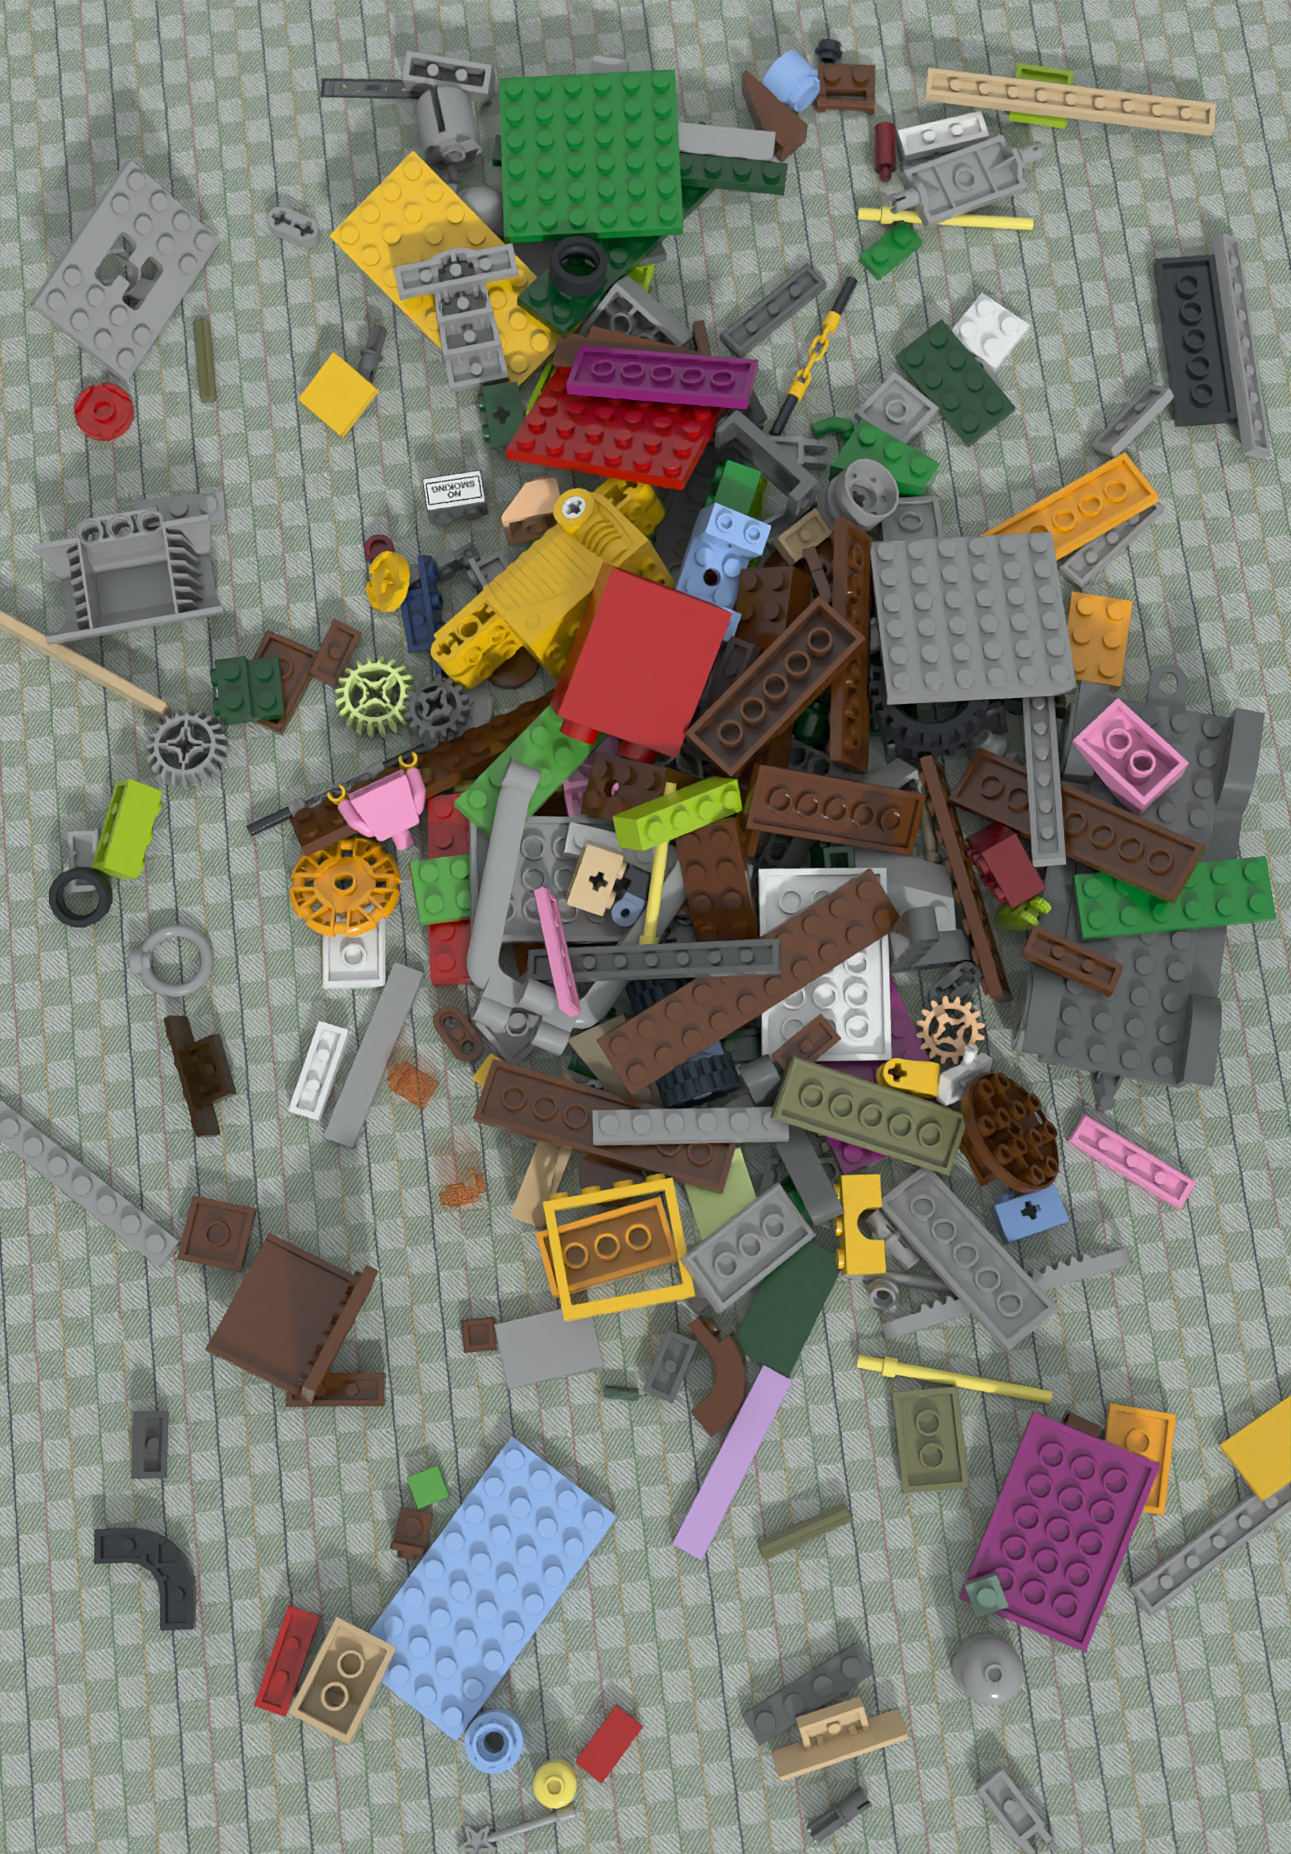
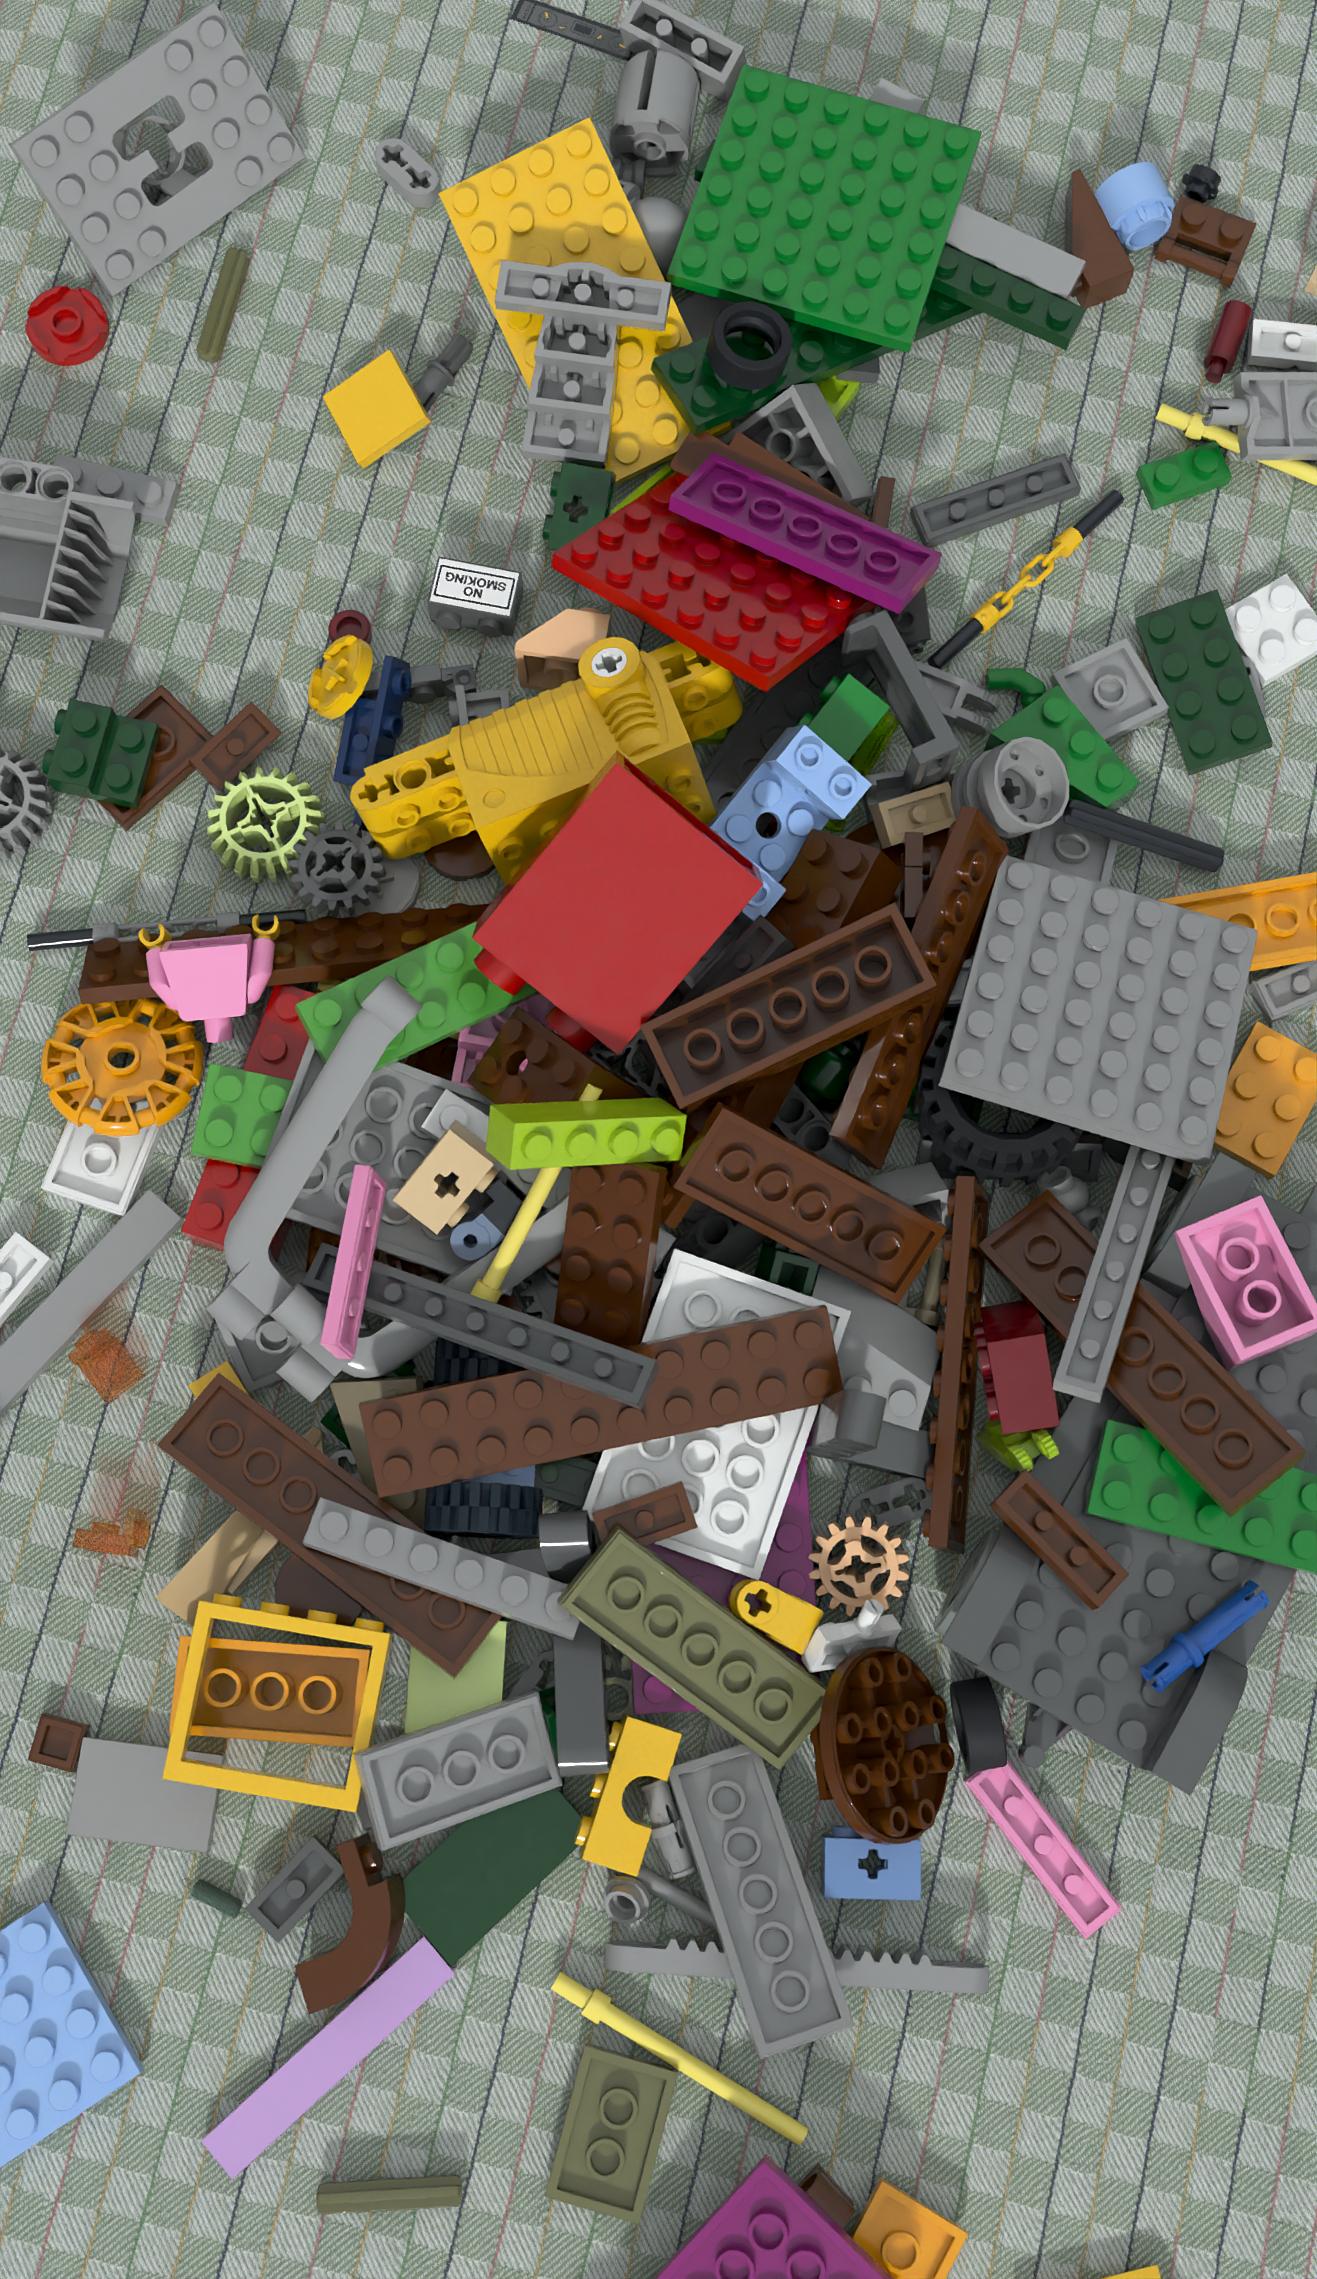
camera: 15 degrees right, 0 degrees up
(458, 1035) = (193, 1320): reddish brown plate -> none
(954, 497) = (1143, 835): none -> black axle
(1063, 1099) = (978, 1724): none -> black tyre
(1179, 997) = (1189, 1647): none -> blue pin

